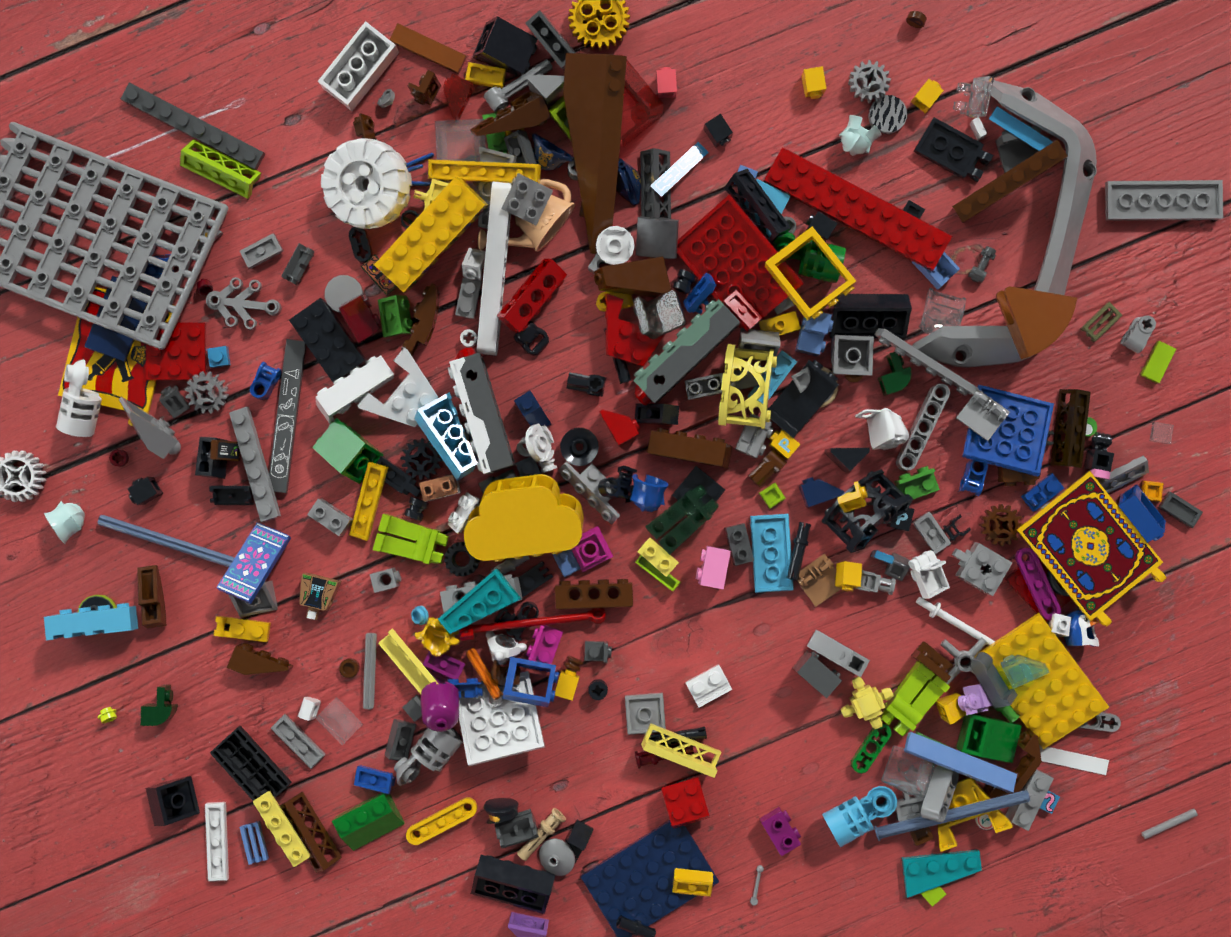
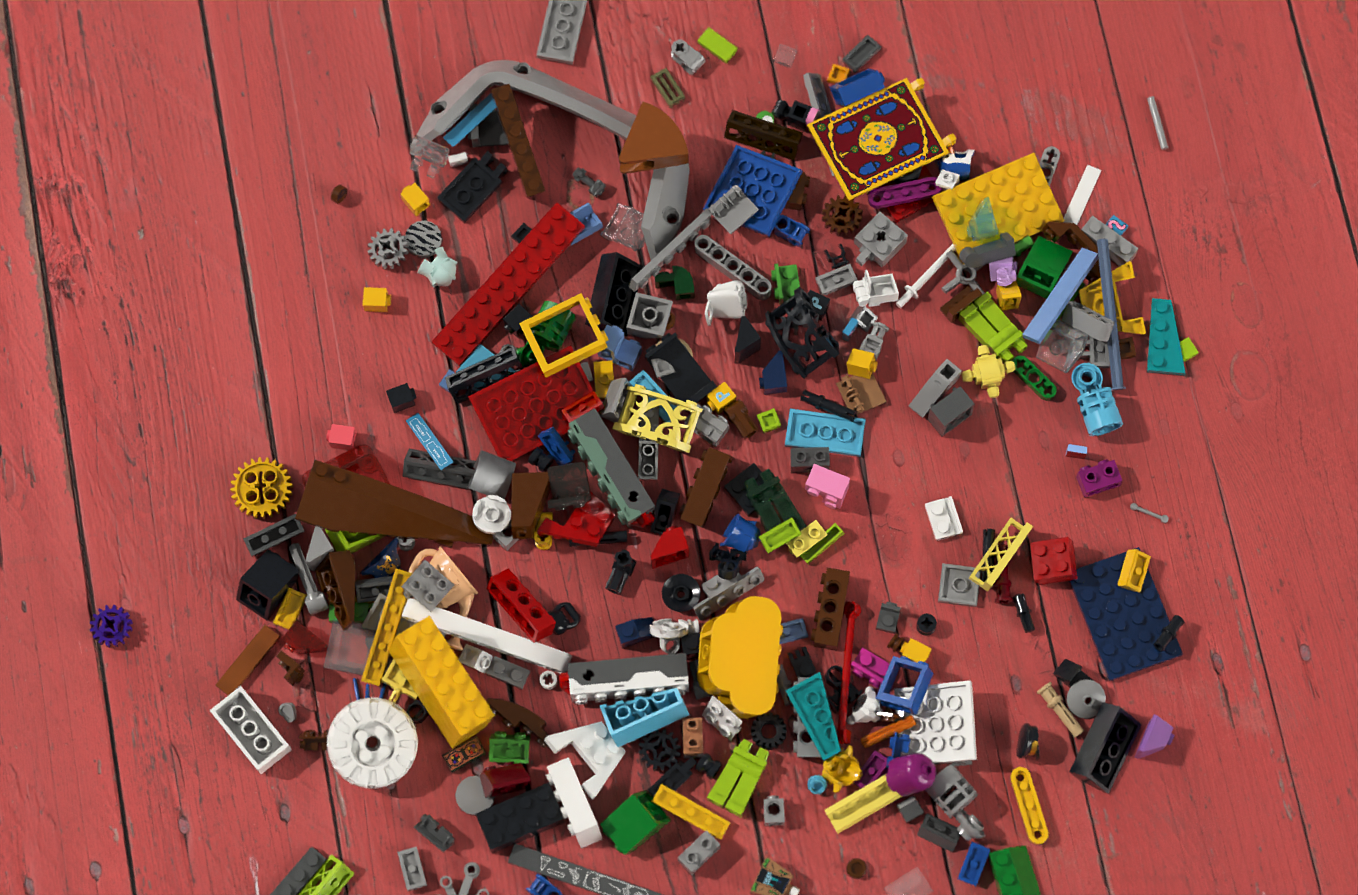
camera: 80 degrees left, 15 degrees down
(356, 245) = (428, 763): black beam -> none
(369, 670) = (862, 847): light grey axle -> none
(517, 830) = (1050, 731): dark grey hinge -> none
(601, 554) = (791, 593): dark pink piece -> none
(628, 183) = (433, 491): dark blue hat -> none
(630, 781) = (1023, 612): none -> black axle
(654, 531) = (780, 535): none -> lime tile
(803, 804) = (1076, 451): none -> tile
(853, 500) = (789, 341): yellow bracket -> none
(984, 822) = (1124, 287): white tile -> none
(1042, 492) = (818, 172): blue plate -> none

